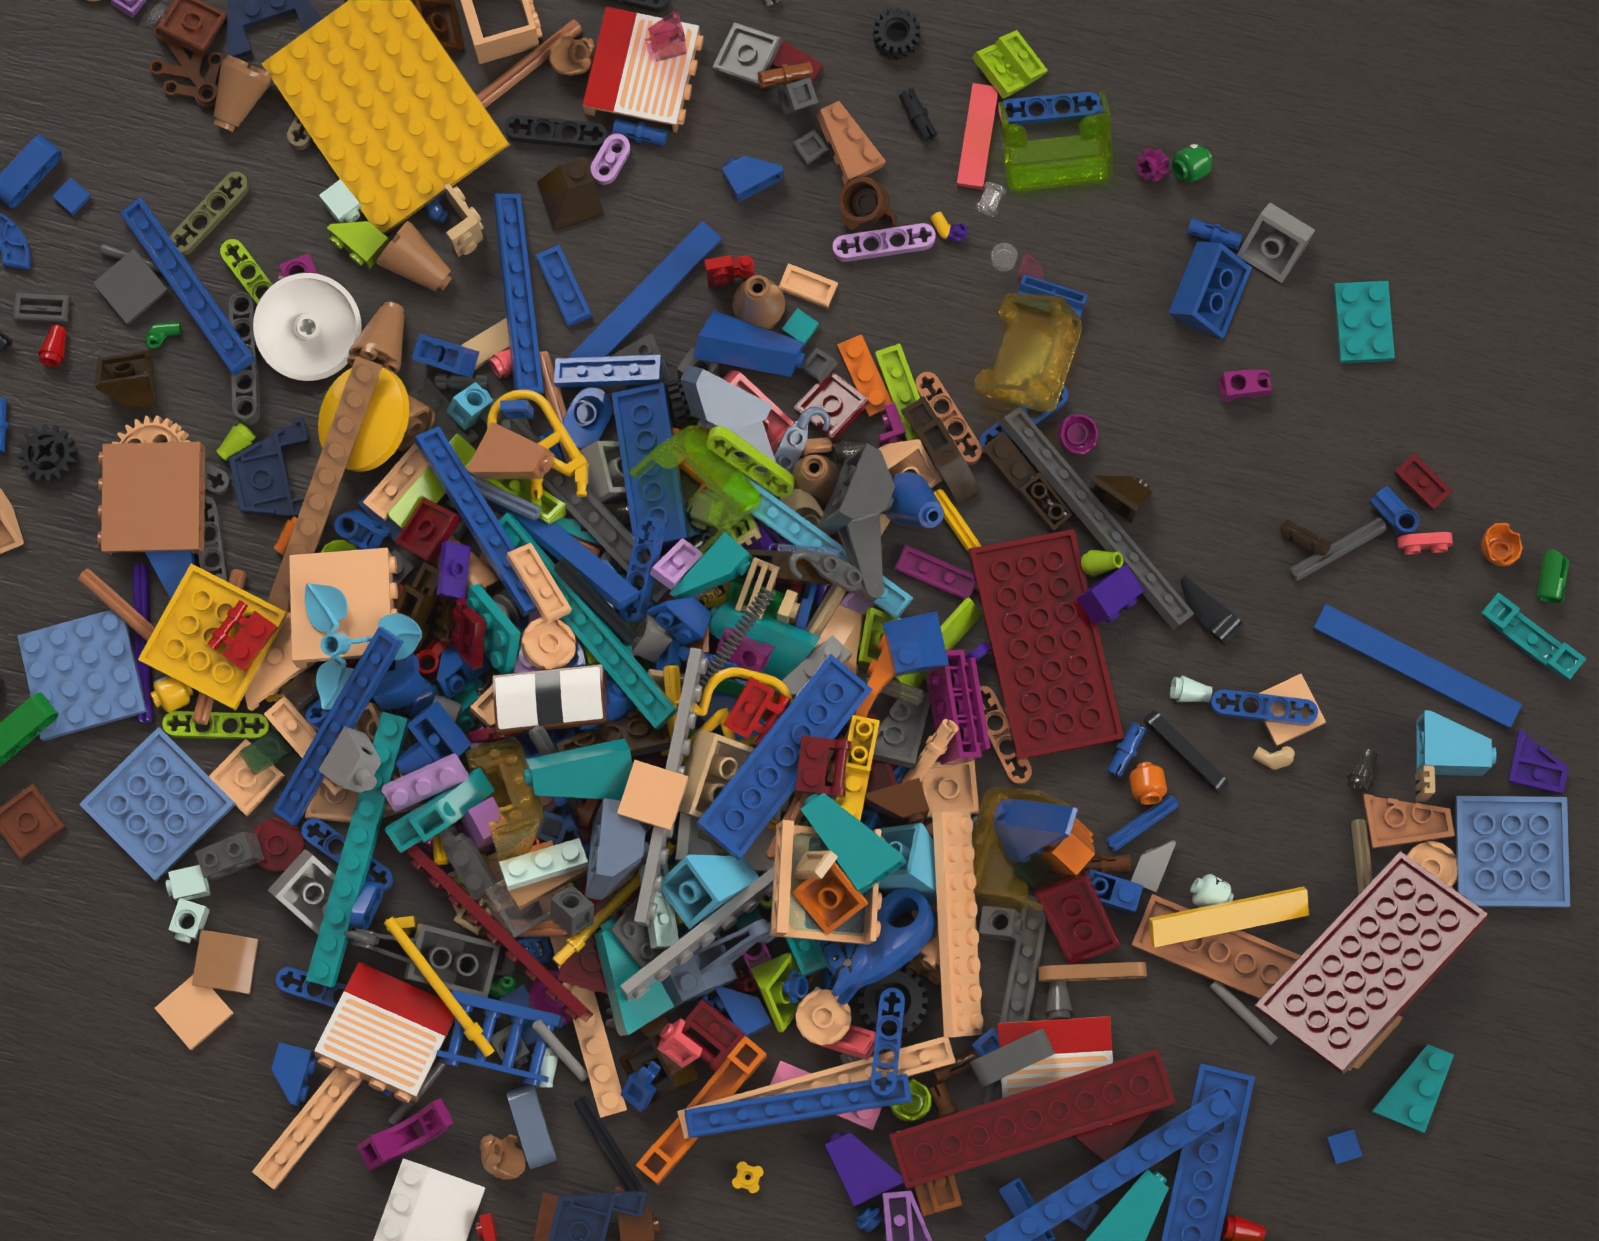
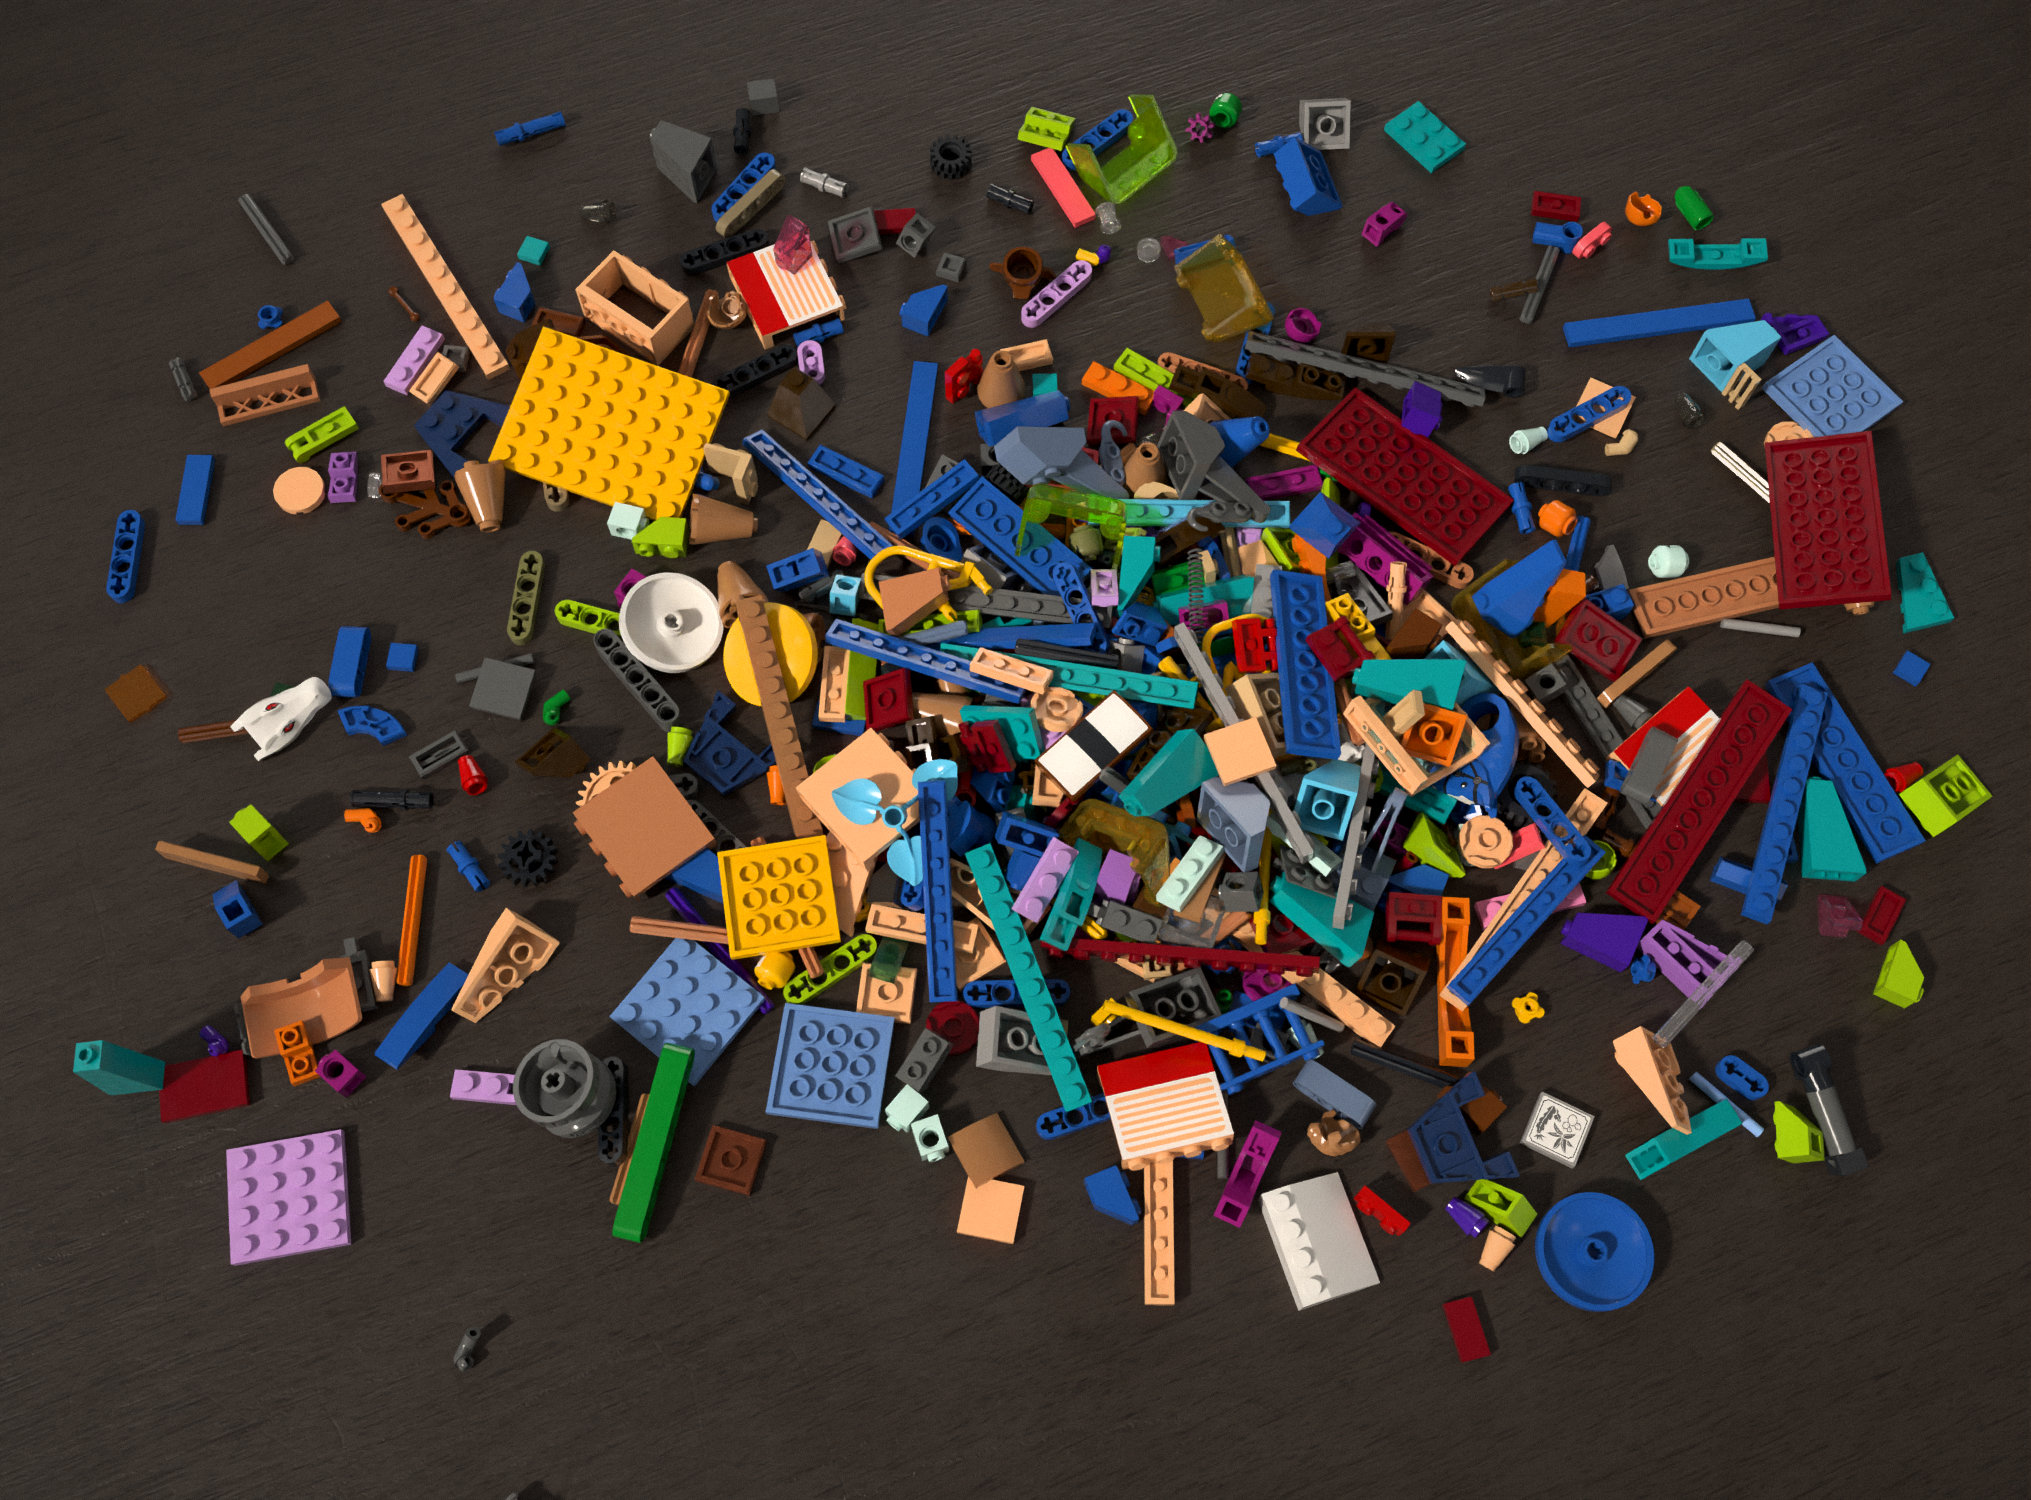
camera: 40 degrees left, 10 degrees down
(188, 286) = (551, 655): blue tile -> none
(248, 641) = (813, 876): red plate -> none
(352, 761) = (973, 907): light grey torso -> none
(366, 532) = (835, 739): blue piece -> none
(366, 905) = (1067, 1016): blue beam -> none
(453, 570) = (936, 709): dark purple plate -> none
(516, 409) = (889, 563): blue tile -> none
(638, 1087) = (1395, 999): blue plate -> none
(677, 1045) = (1400, 940): coral bracket -> none
(726, 443) = (1095, 486): lime beam -> none
(765, 565) = (1184, 548): tan tile -> none
(785, 74) = (894, 226): dark orange pin -> none
(795, 986) = (1447, 832): blue plate -> none
(818, 365) = (1081, 401): dark grey tile -> none
(850, 144) = (983, 245): nougat wing -> none
(1100, 562) = (1394, 394): lime cone -> none
(1228, 916) = (1697, 565): yellow tile -> none
(1402, 823) = (1746, 426): nougat wing -> none

